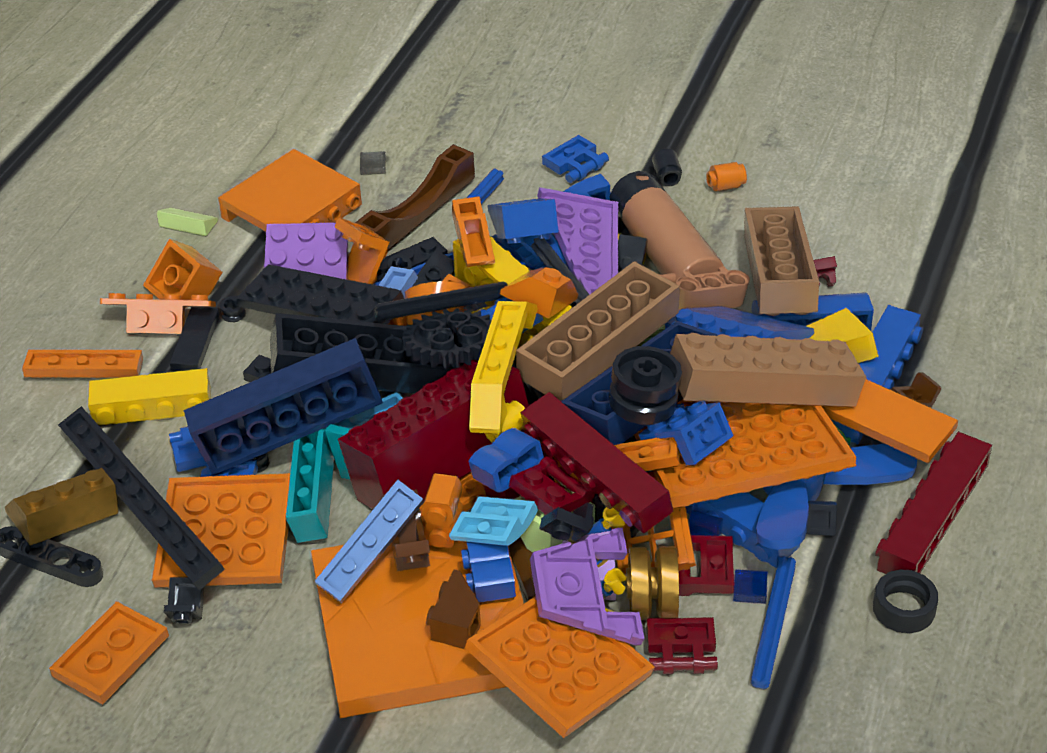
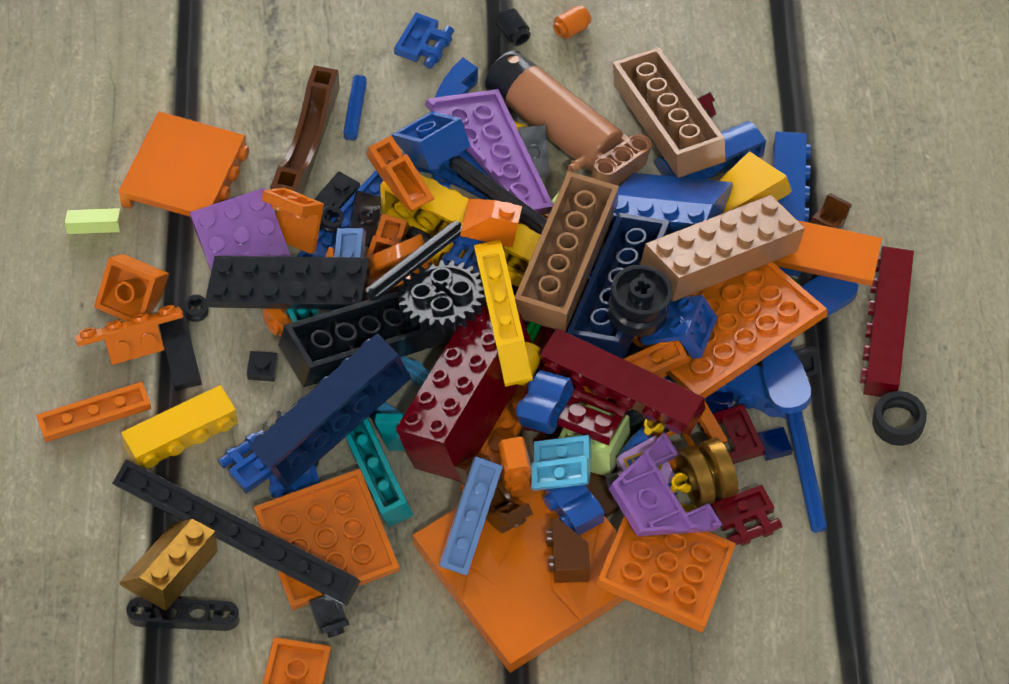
camera: 25 degrees left, 15 degrees up
(372, 163) = (233, 99): clear smoke tile -> none
(568, 525) = (628, 443): black bracket -> none

